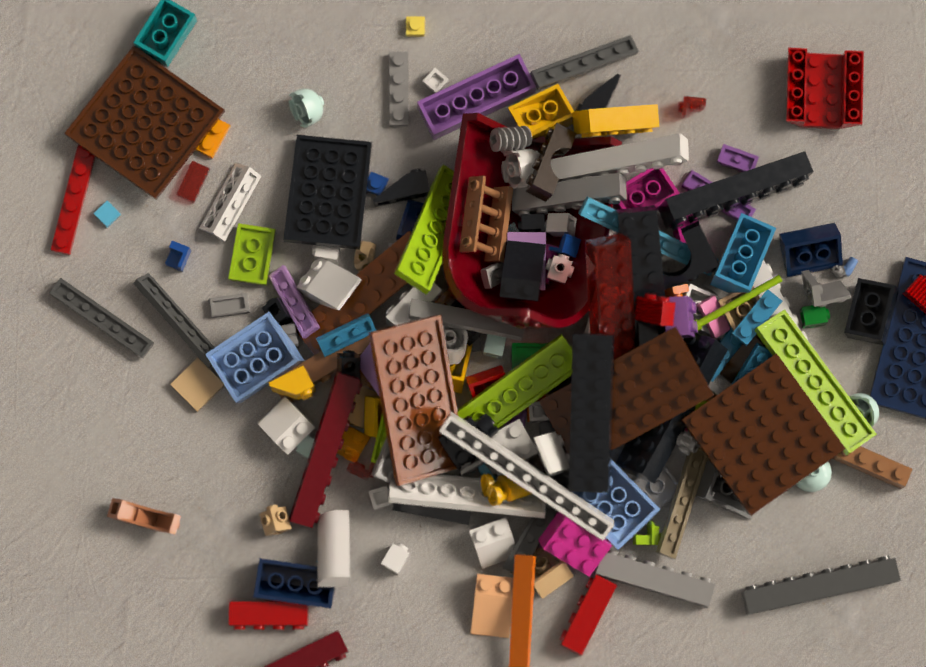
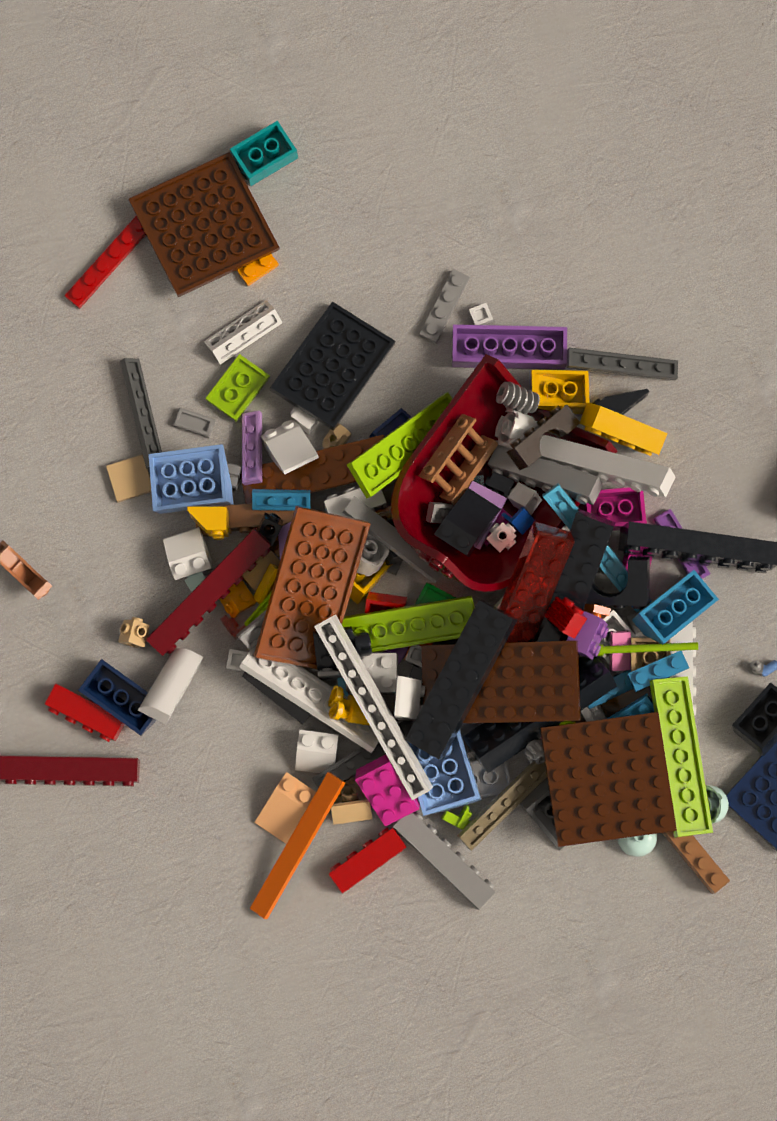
camera: 30 degrees right, 0 degrees up
(101, 318) = (77, 377): dark grey plate -> none
(107, 214) = (130, 289): medium azure tile -> none
(178, 256) = (172, 357): blue panel -> none
(193, 182) = (220, 298): clear red tile -> none
(273, 306) = (230, 444): black brick -> none
(306, 106) = (353, 280): light aqua cylinder -> none
(376, 183) = (380, 380): blue plate -> none
(395, 558) = (223, 720): white brick -> none
(410, 186) = (408, 397): black slope -> none
(415, 26) = (488, 258): light yellow plate -> none
(494, 346) = (409, 577): light aqua brick -> none
(692, 103) = (703, 451): clear red bracket -> none
(737, 159) = (716, 519): medium lavender plate -> none
(811, 249) = (741, 635): dark blue slope -> none
(814, 316) = (713, 696): green brick -> none
(820, 586) = (590, 943): dark grey brick -> none
(823, 294) = (732, 681): light grey bracket -> none

